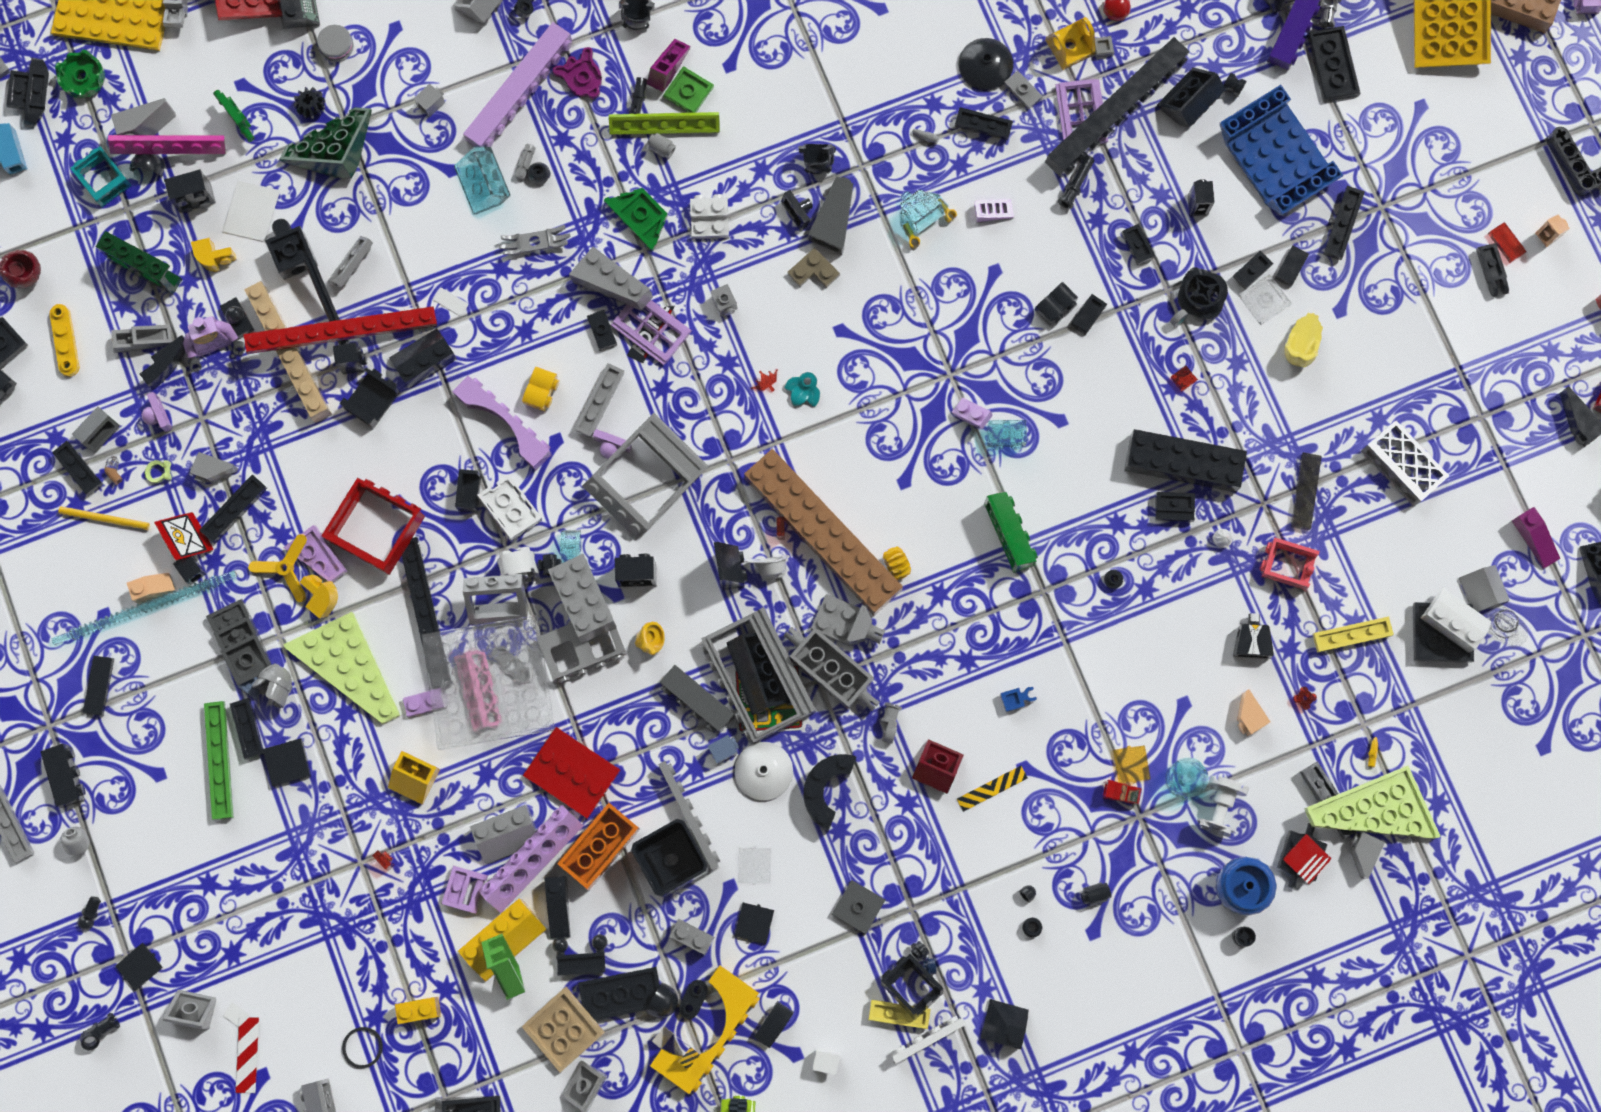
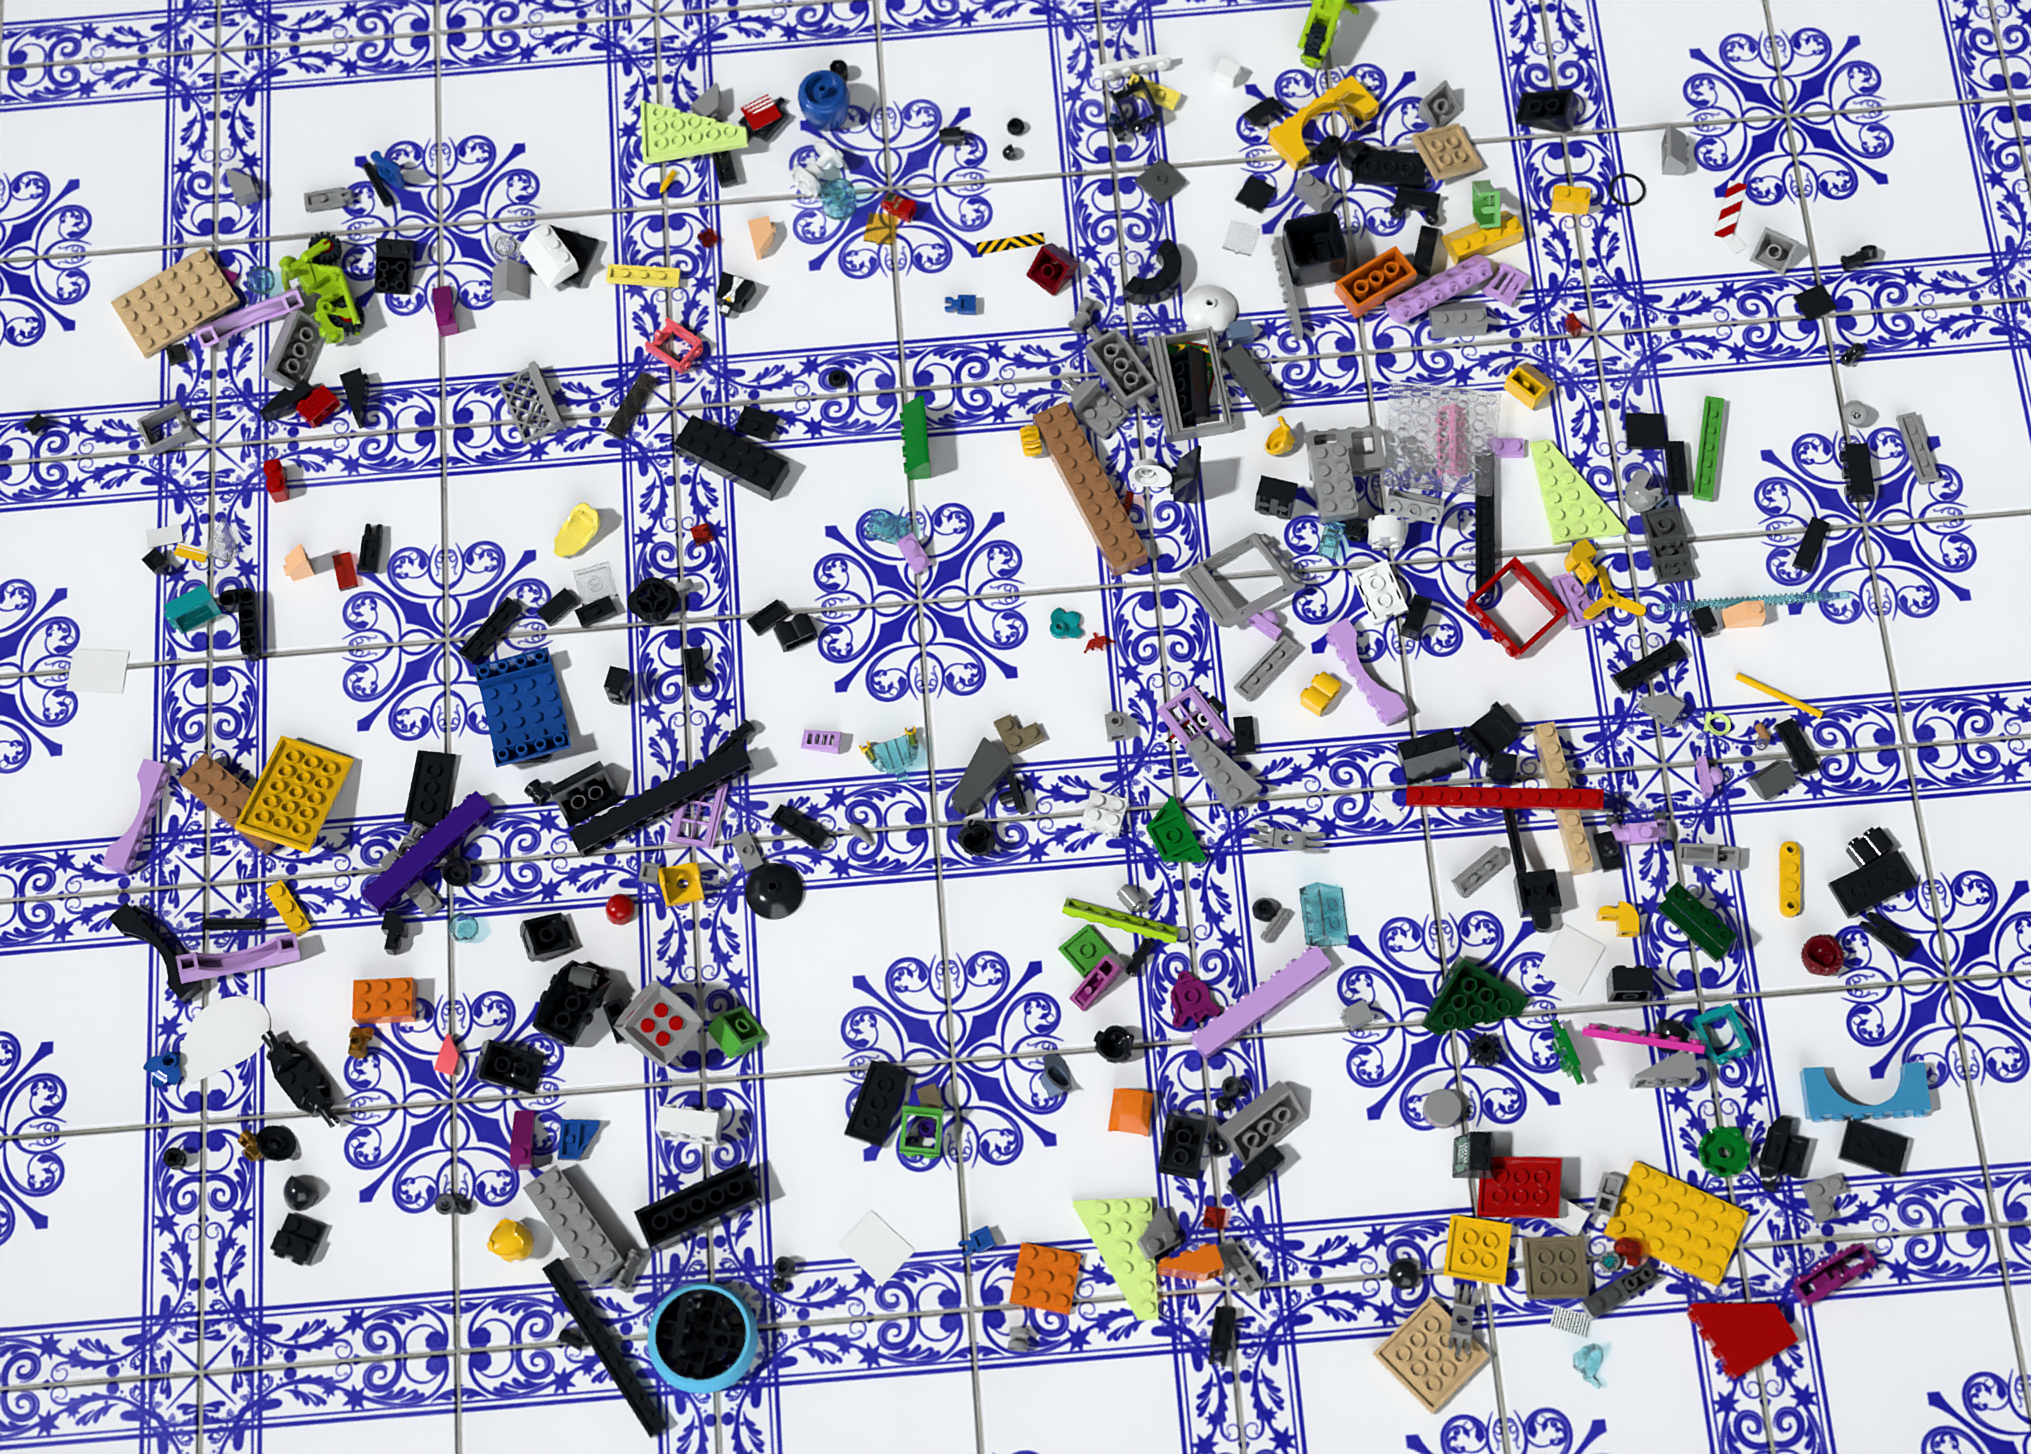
camera: 160 degrees left, 10 degrees down
(165, 363) = (1691, 823): black slope -> none
(183, 536) = (1702, 648): sticker -> none
(572, 772) = (1383, 352): red plate -> none
(1005, 1024) = (1065, 60): black slope -> none
(1222, 538) = (724, 386): white plate -> none

